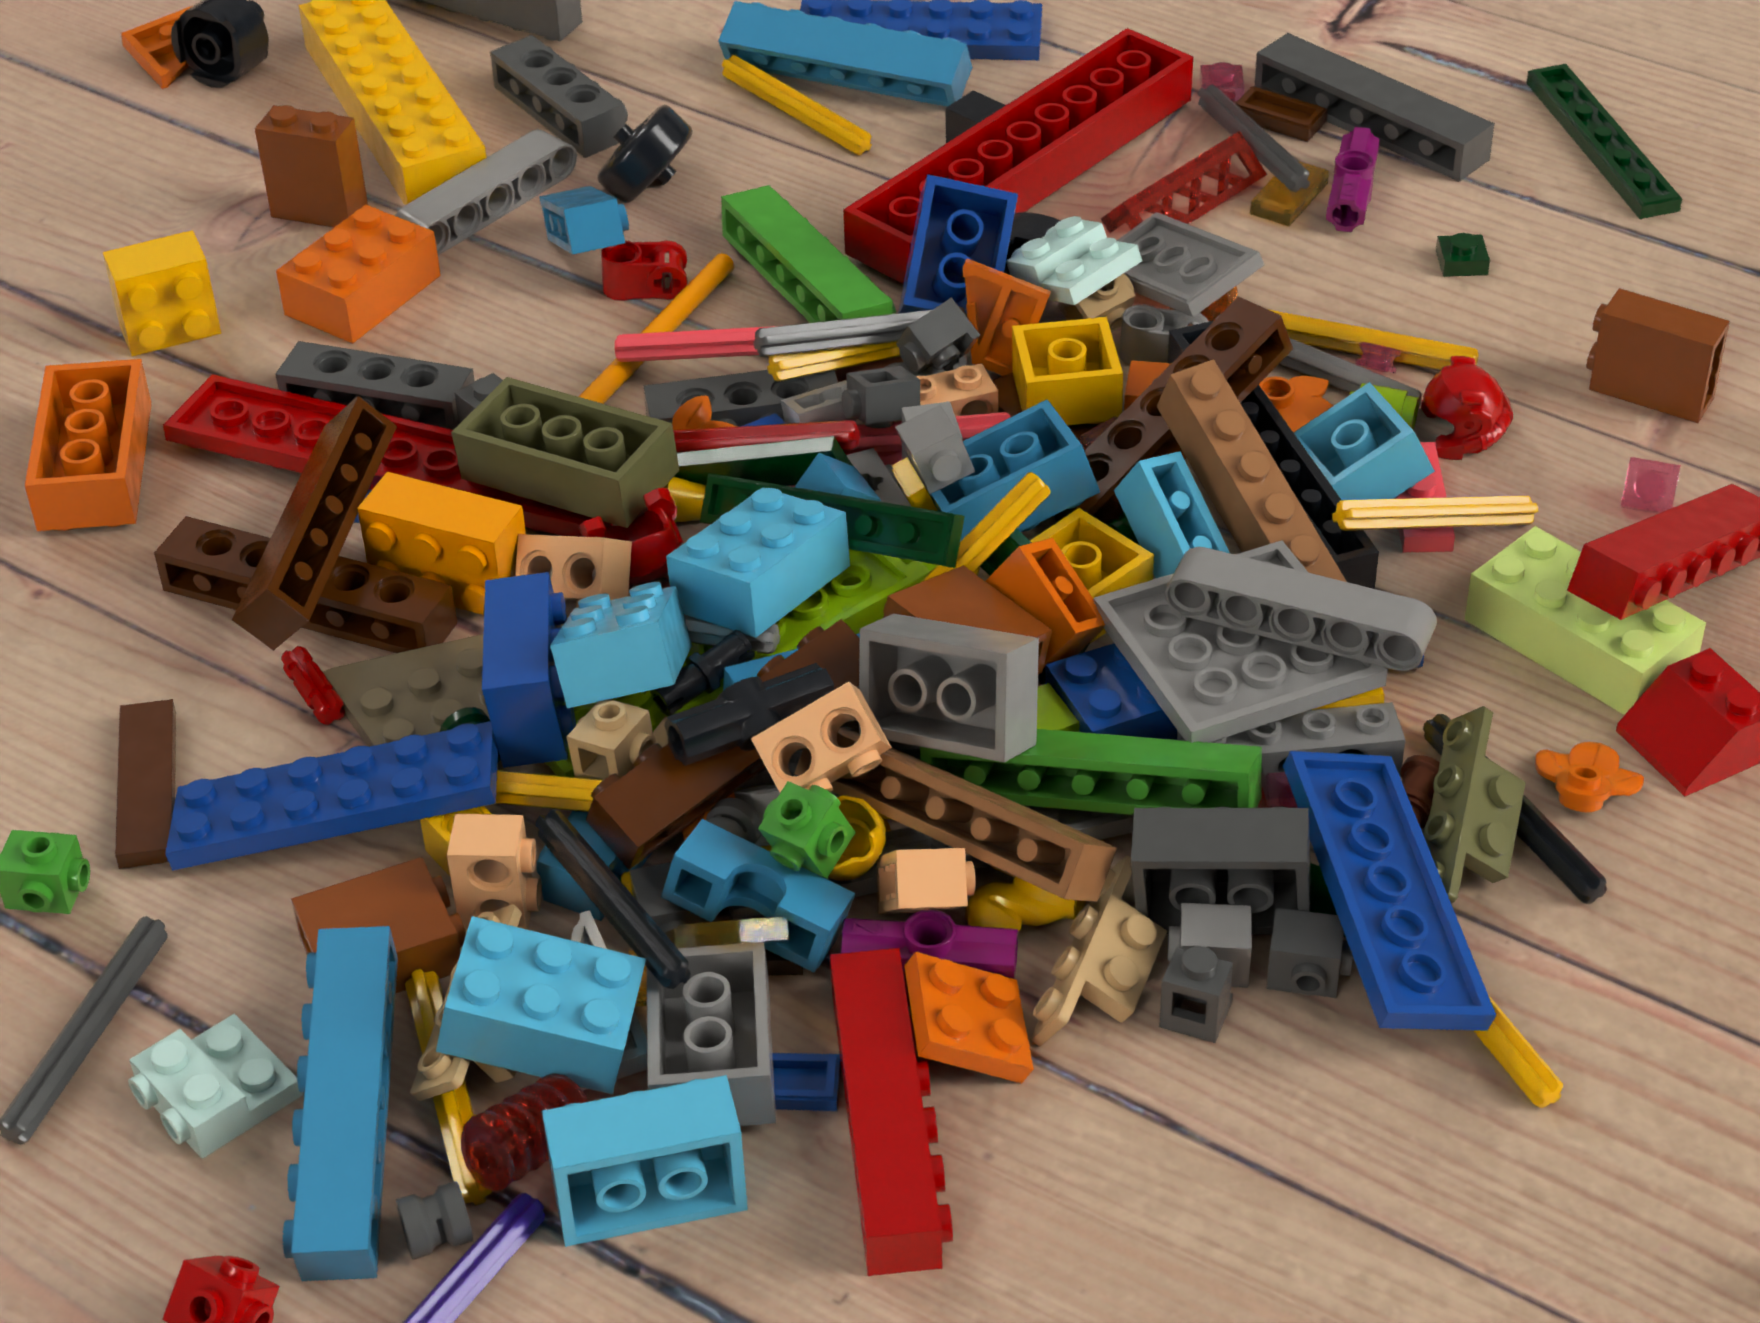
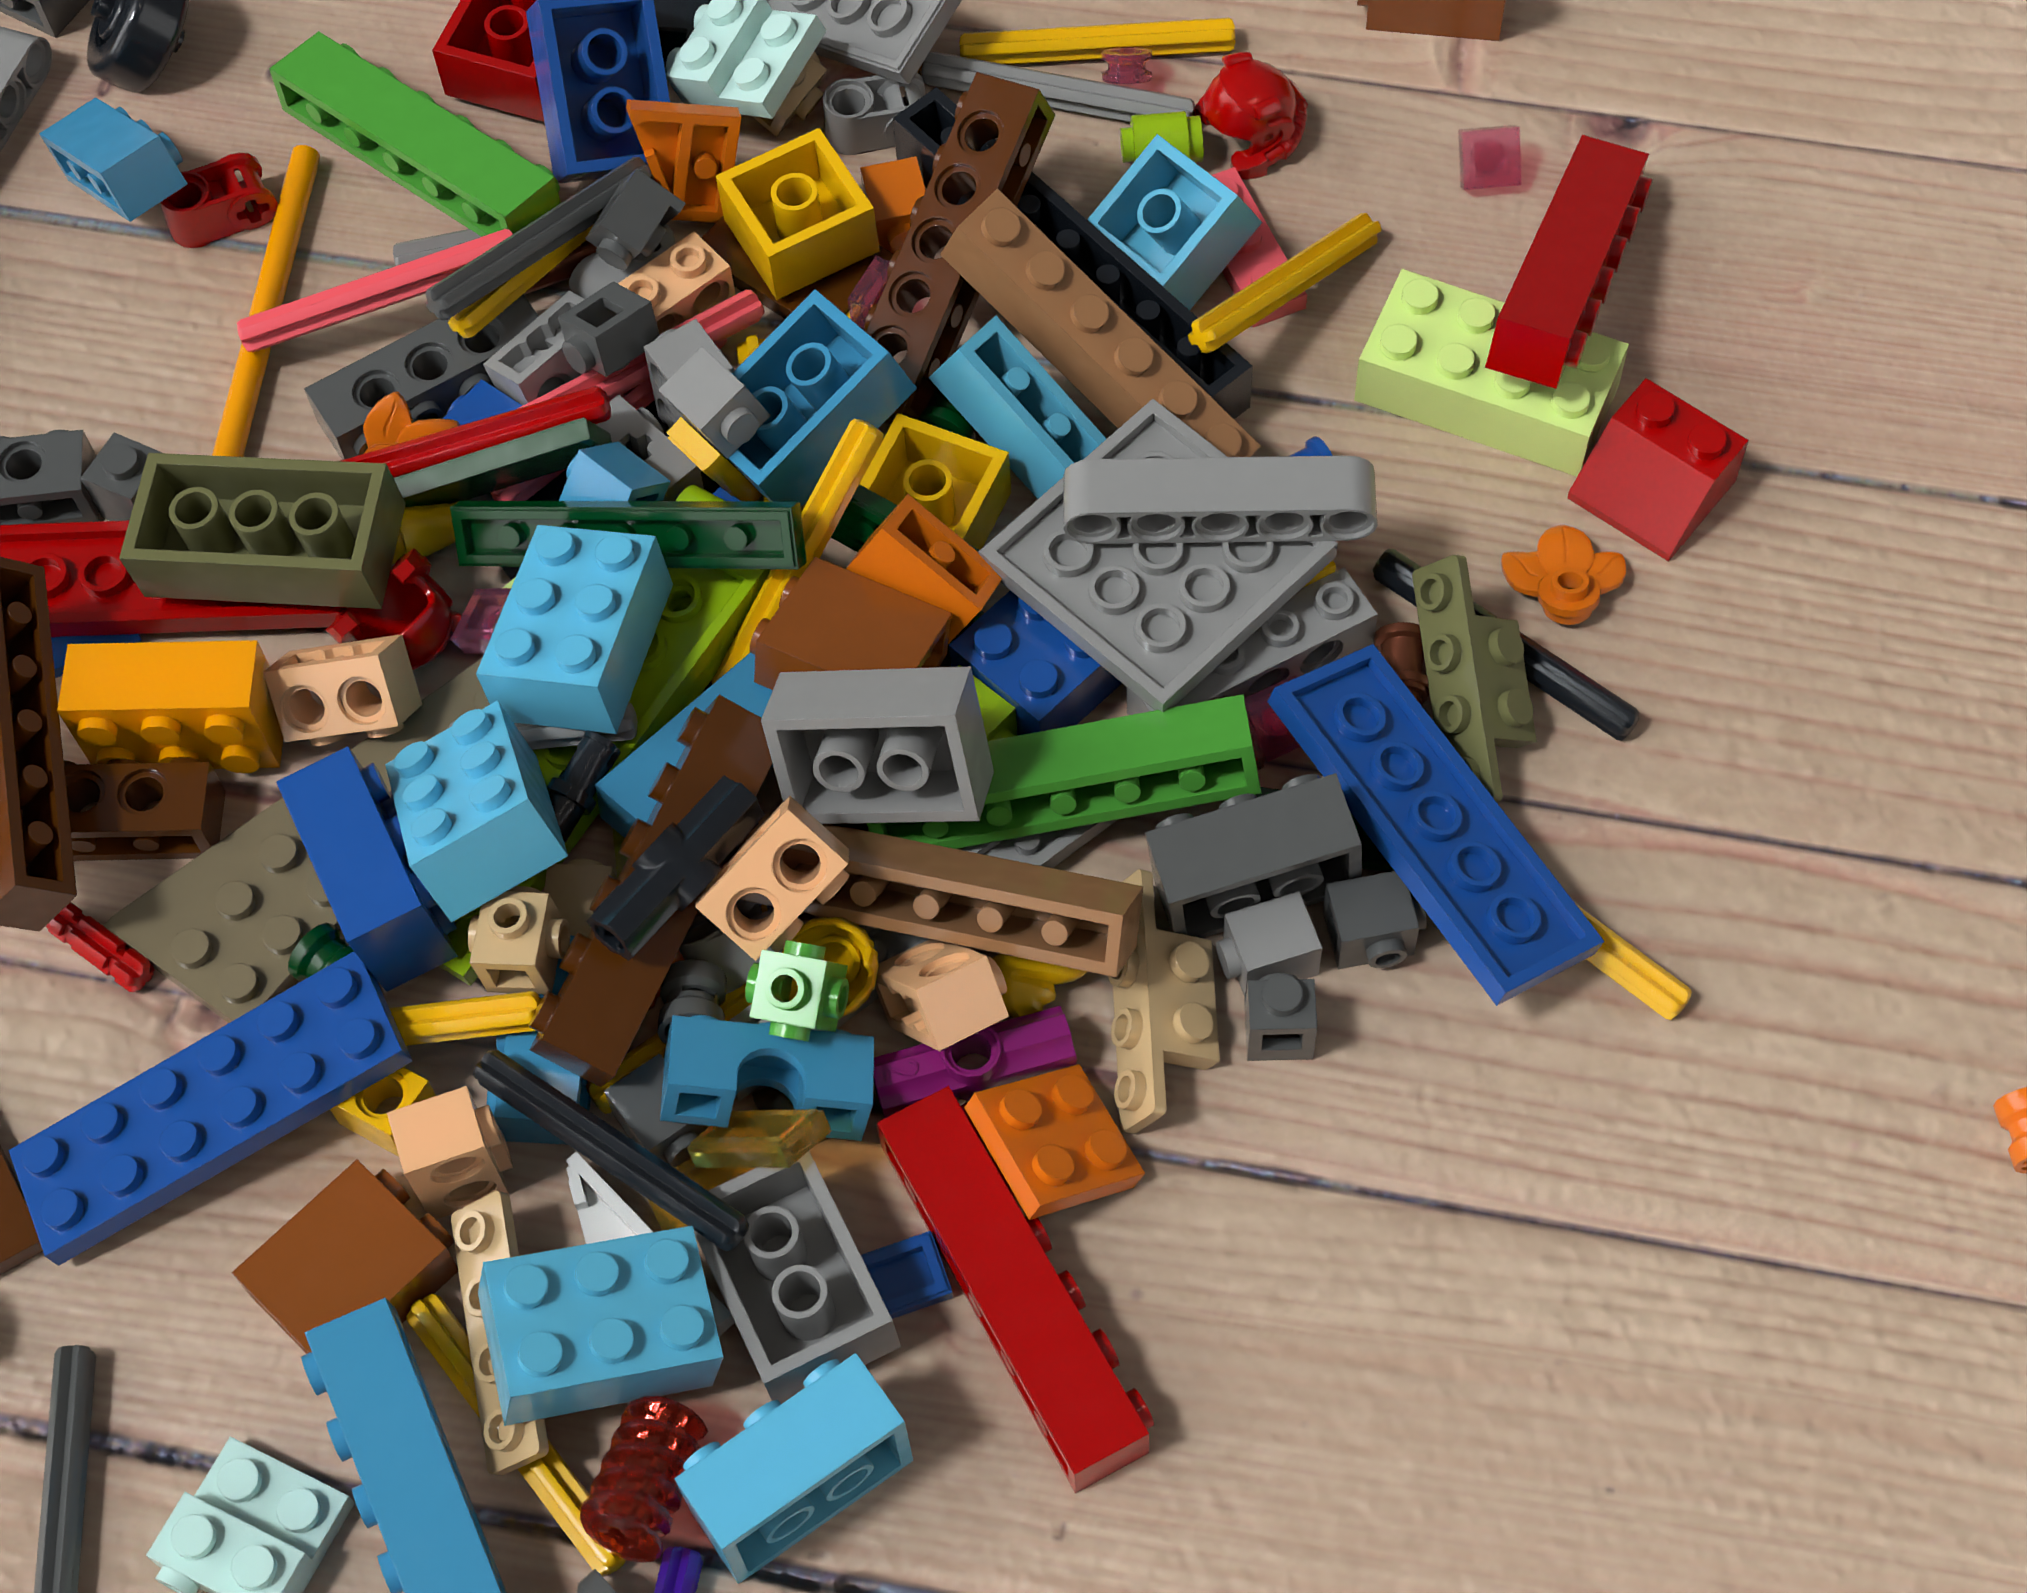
camera: 20 degrees left, 20 degrees up
(1297, 399) = (1073, 163): orange plate -> none

